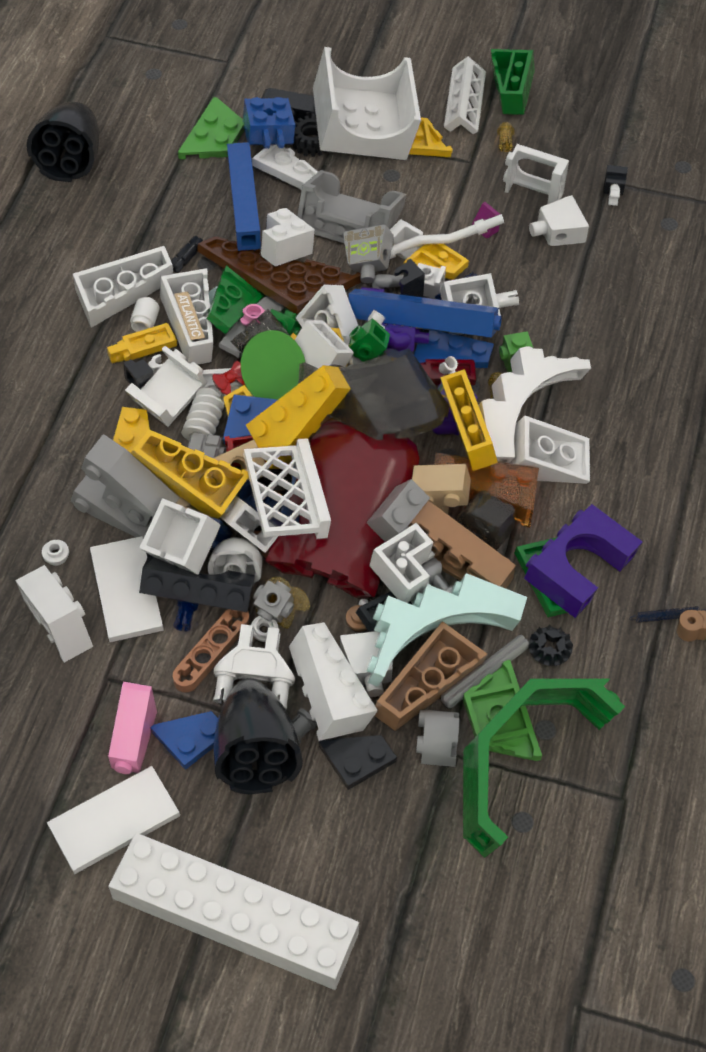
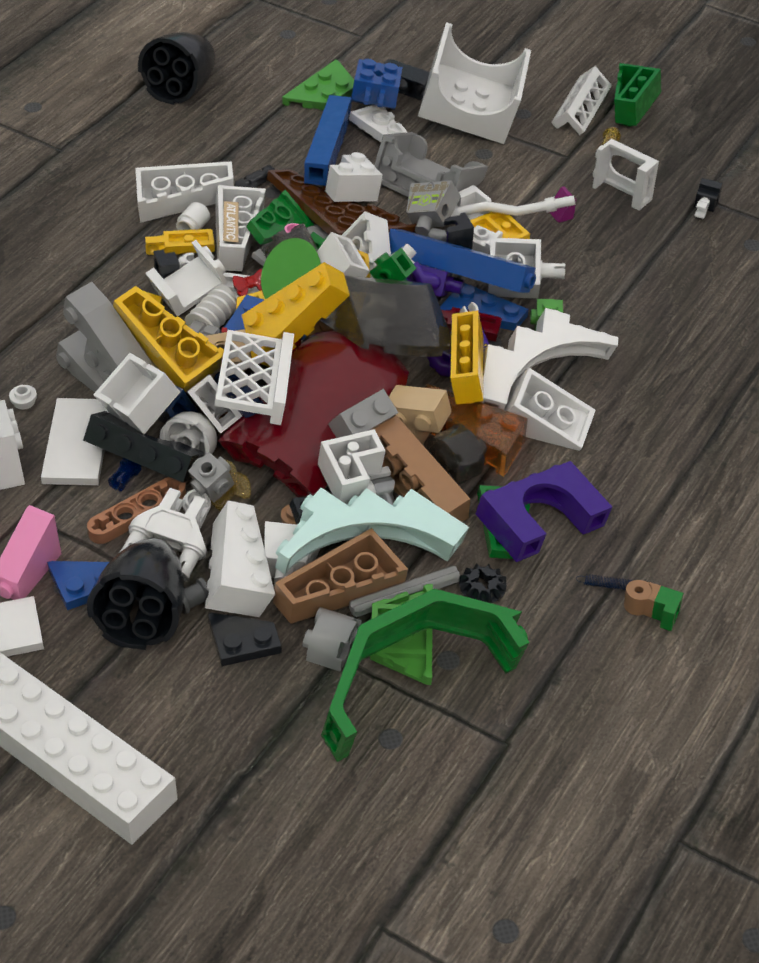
camera: 15 degrees right, 10 degrees down
(302, 142) = (409, 105): black tyre -> none
(429, 142) = (528, 129): yellow wing -> none
(561, 223) = (637, 220): white torso -> none

